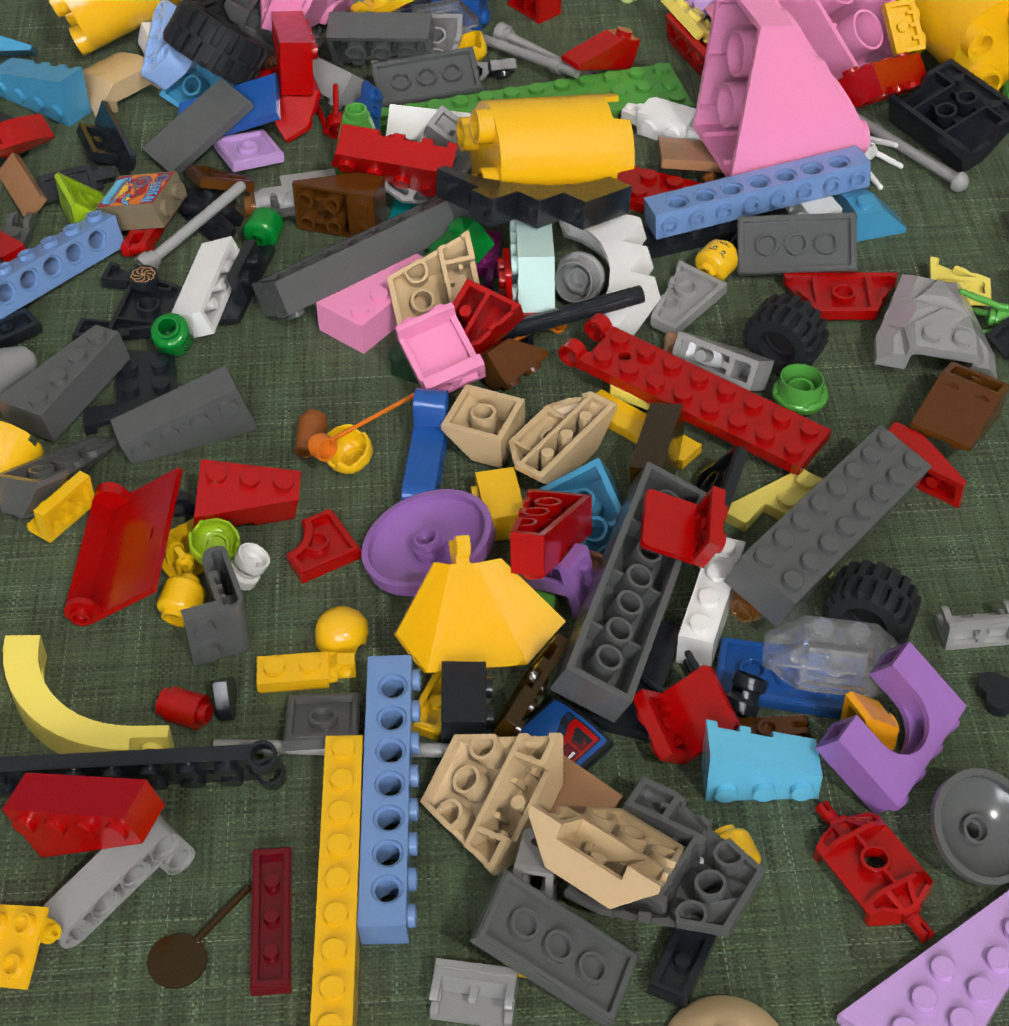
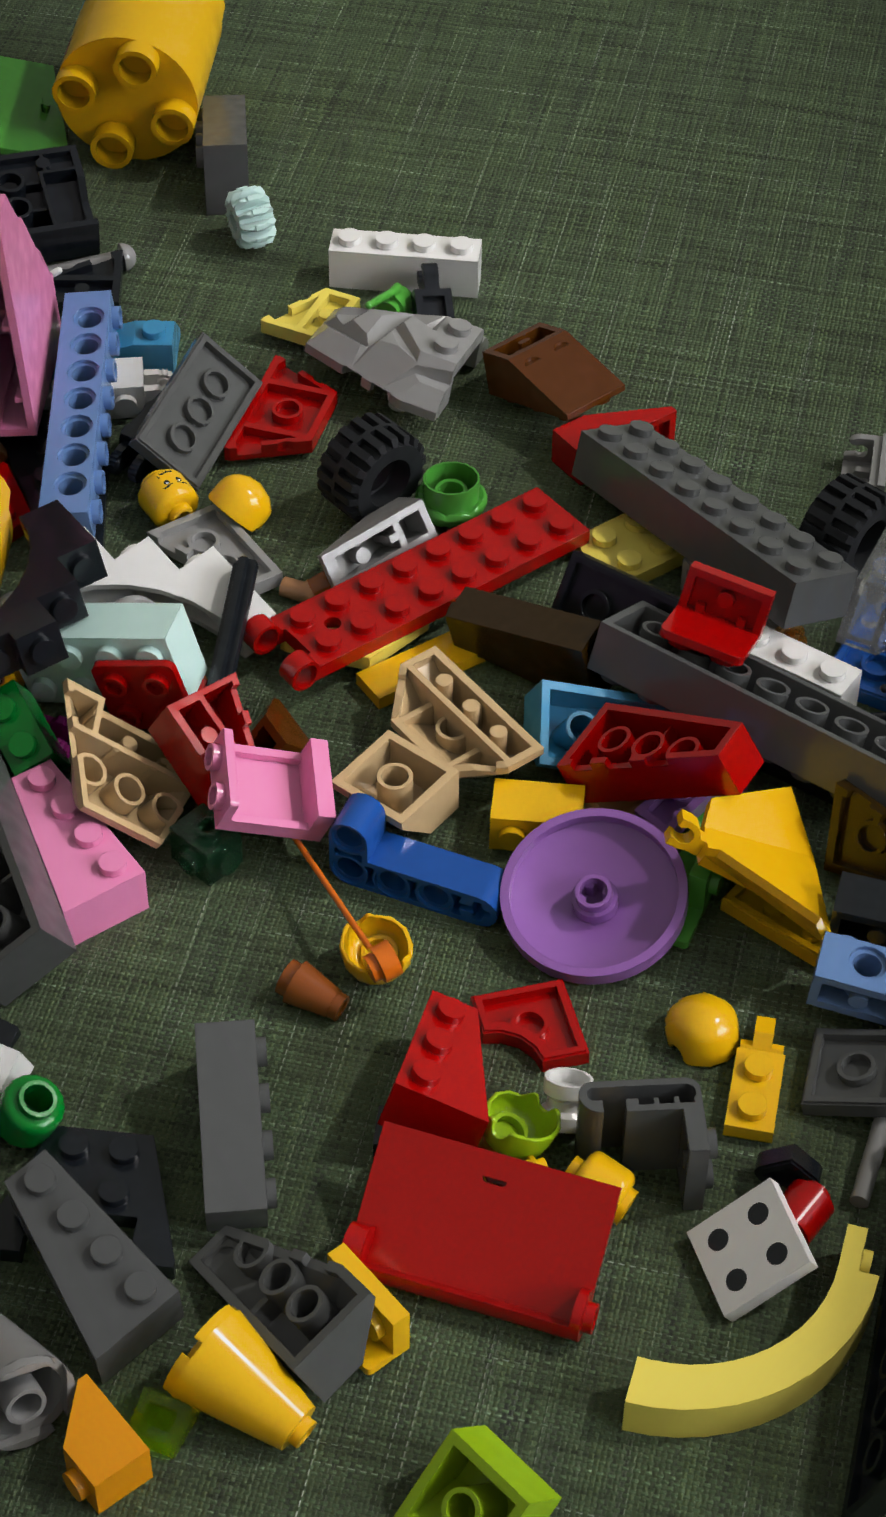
camera: 75 degrees left, 0 degrees up
(144, 683) = (751, 1250): none -> white tile
(730, 293) = (242, 500): none -> yellow hair
(913, 174) = (89, 277): none -> black wing

